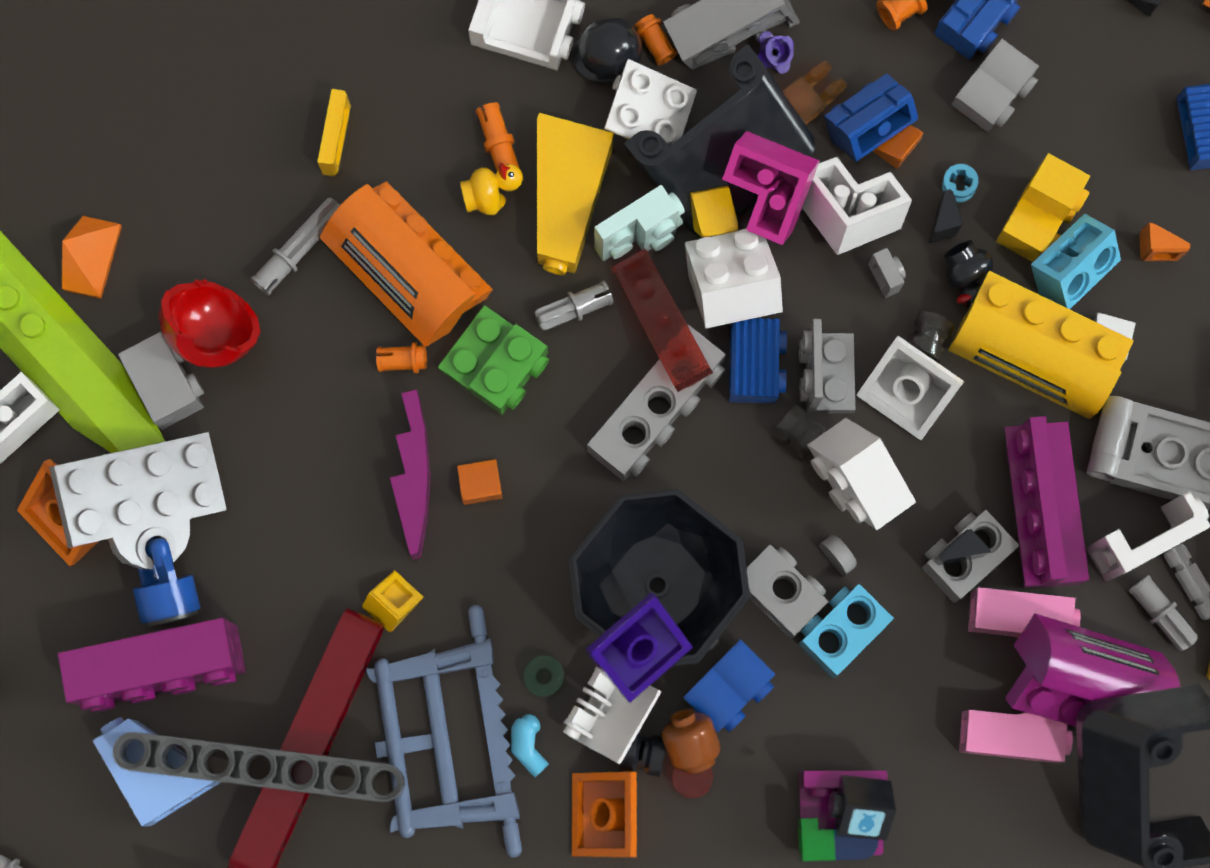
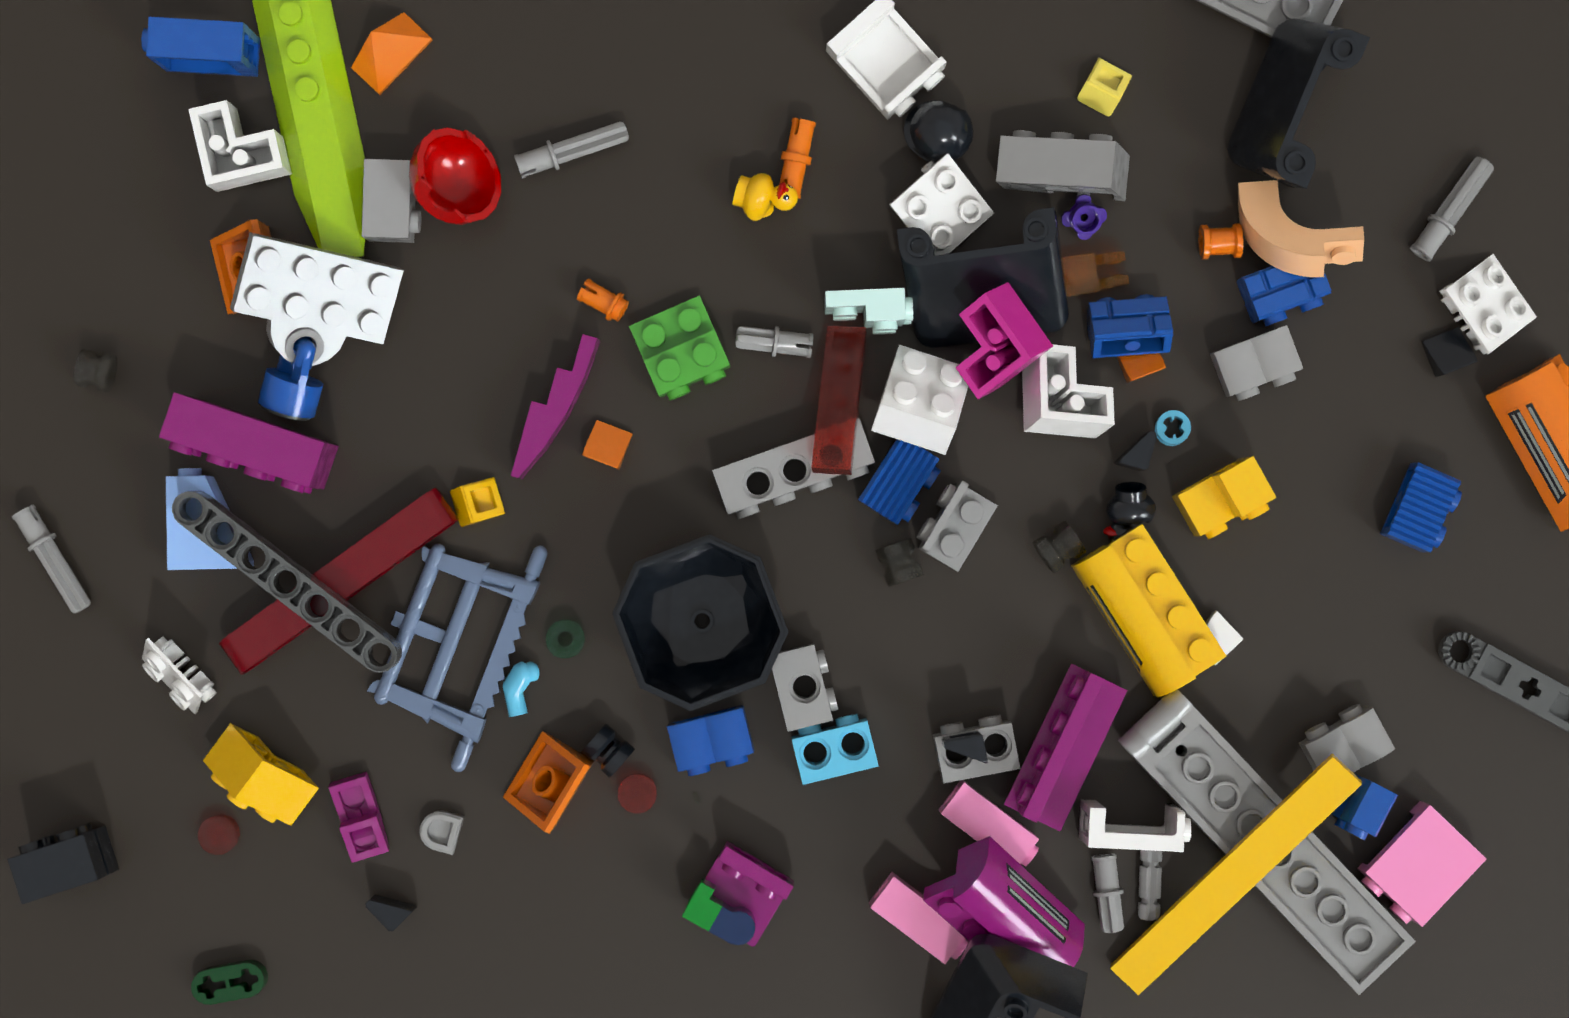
camera: 30 degrees right, 10 degrees up
(334, 132) = (659, 66): yellow tile -> none
(403, 261) = (653, 217): orange brick -> none
(569, 181) = (833, 231): yellow slope -> none
(608, 719) = (601, 704): white hinge -> none
(639, 648) = (645, 673): dark purple slope -> none
(656, 39) = (987, 143): orange pin -> none
(691, 741) = (650, 766): dark orange head -> none
(713, 211) = (940, 332): yellow slope -> none
(838, 554) = (868, 684): light grey tile -> none
(860, 474) = (922, 632): white brick -> none
(863, 807) = (754, 904): black brick -> none
(887, 272) = (1059, 470): light grey plate -> none
(909, 388) = (1013, 581): white slope -> none
(1076, 261) = (1224, 558): medium azure brick -> none
(1160, 244) = (1307, 585): orange slope -> none

